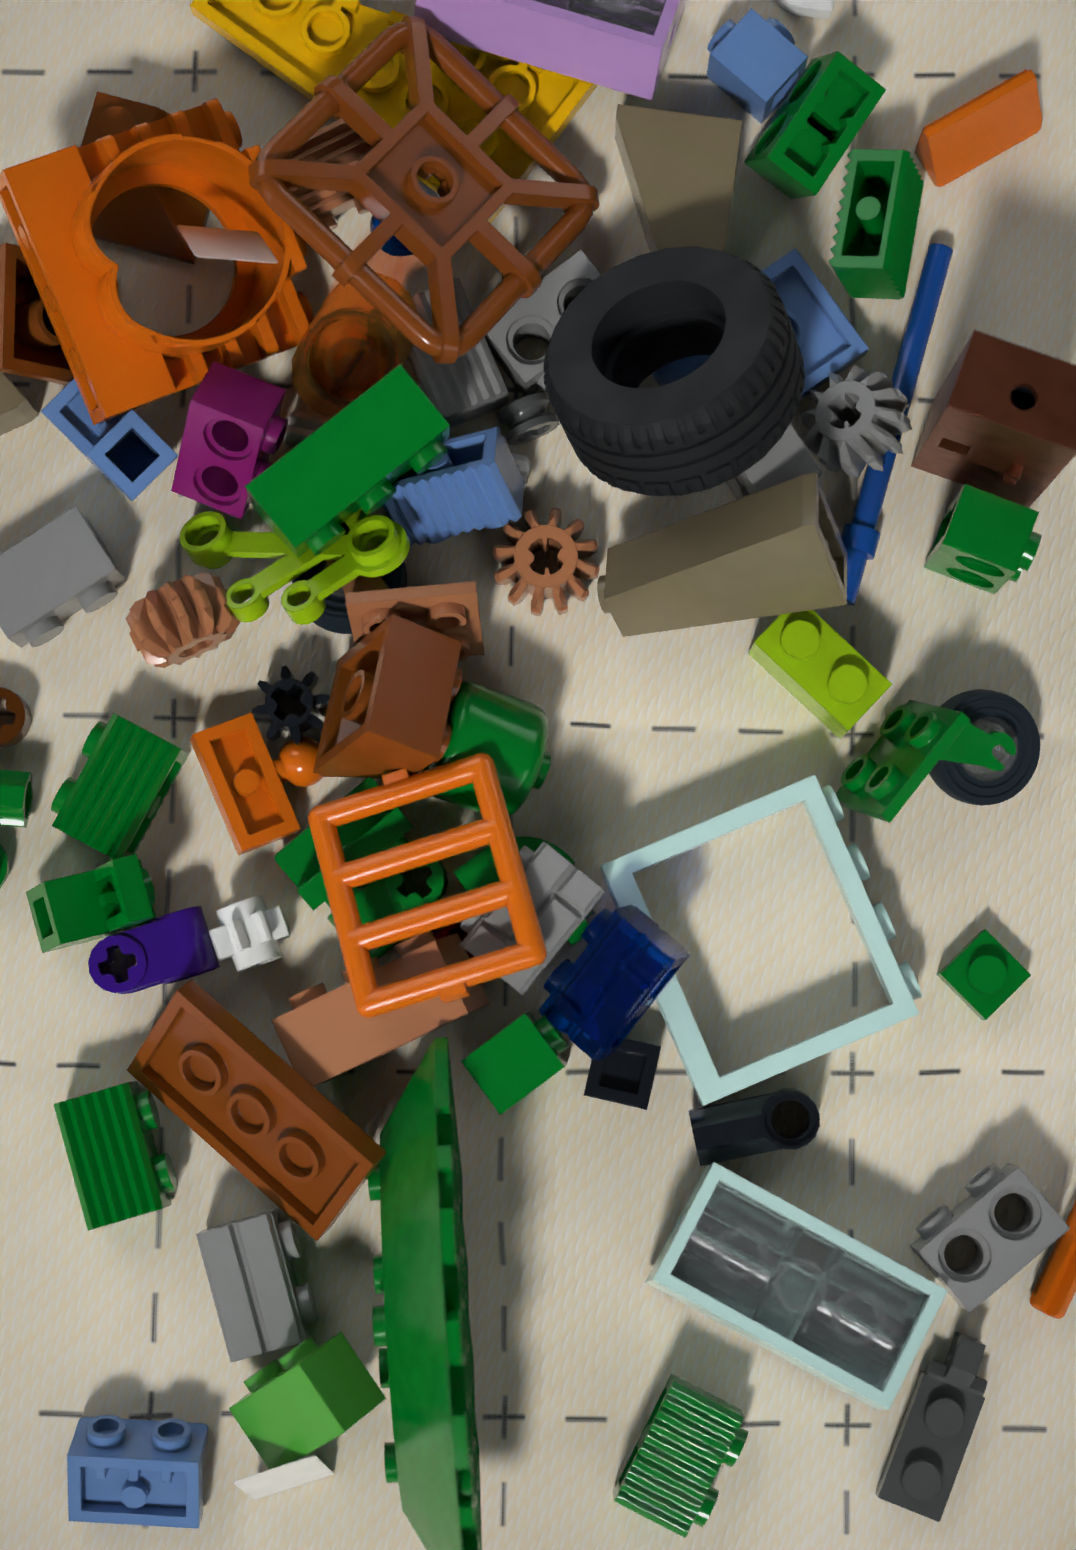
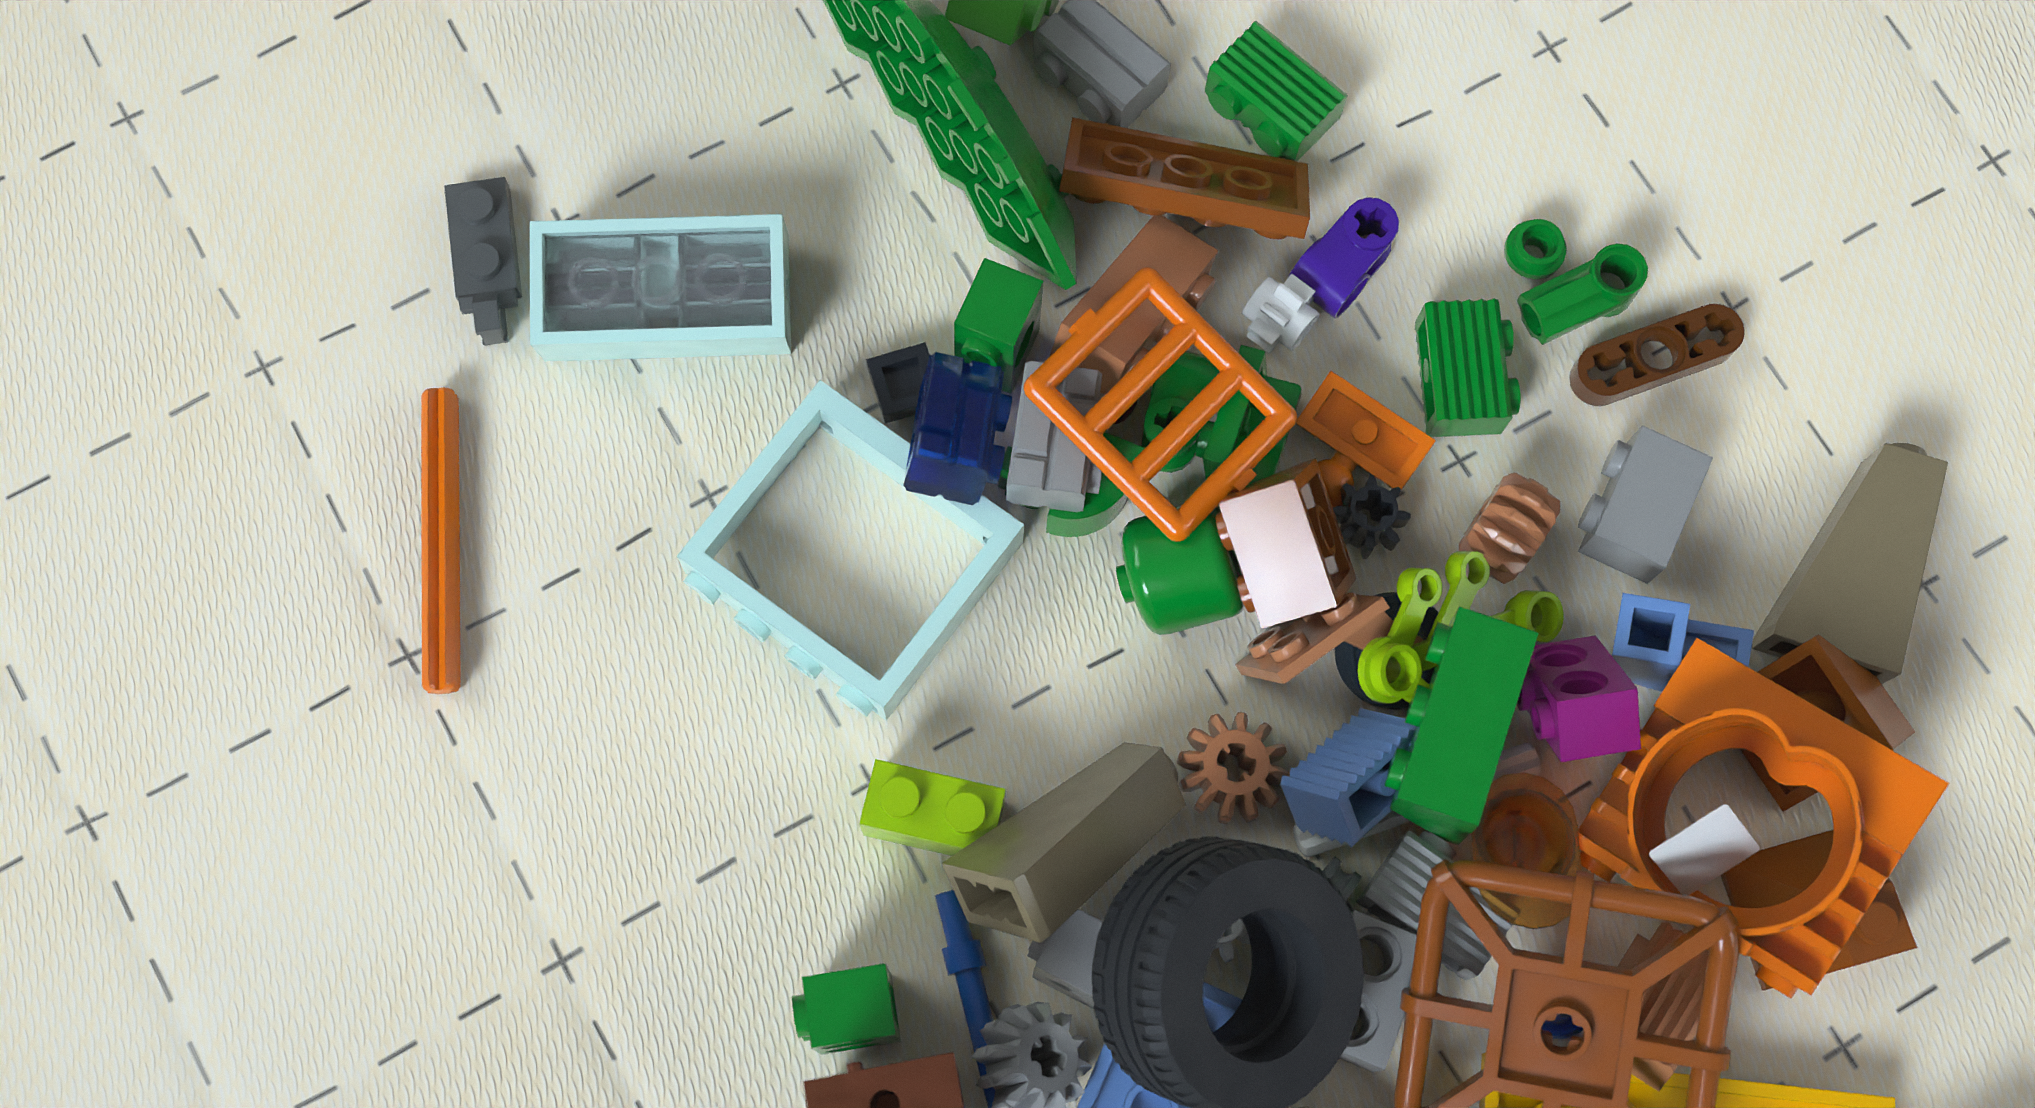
camera: 140 degrees right, 10 degrees down
(92, 904) = (1420, 265): green brick -> none
(680, 1456) = (683, 120): green brick -> none
(745, 1127) = (767, 394): black piece -> none
(973, 746) = (754, 820): plate -> none
(984, 974) = (638, 637): green plate -> none
(997, 1250) = (503, 417): light grey brick -> none

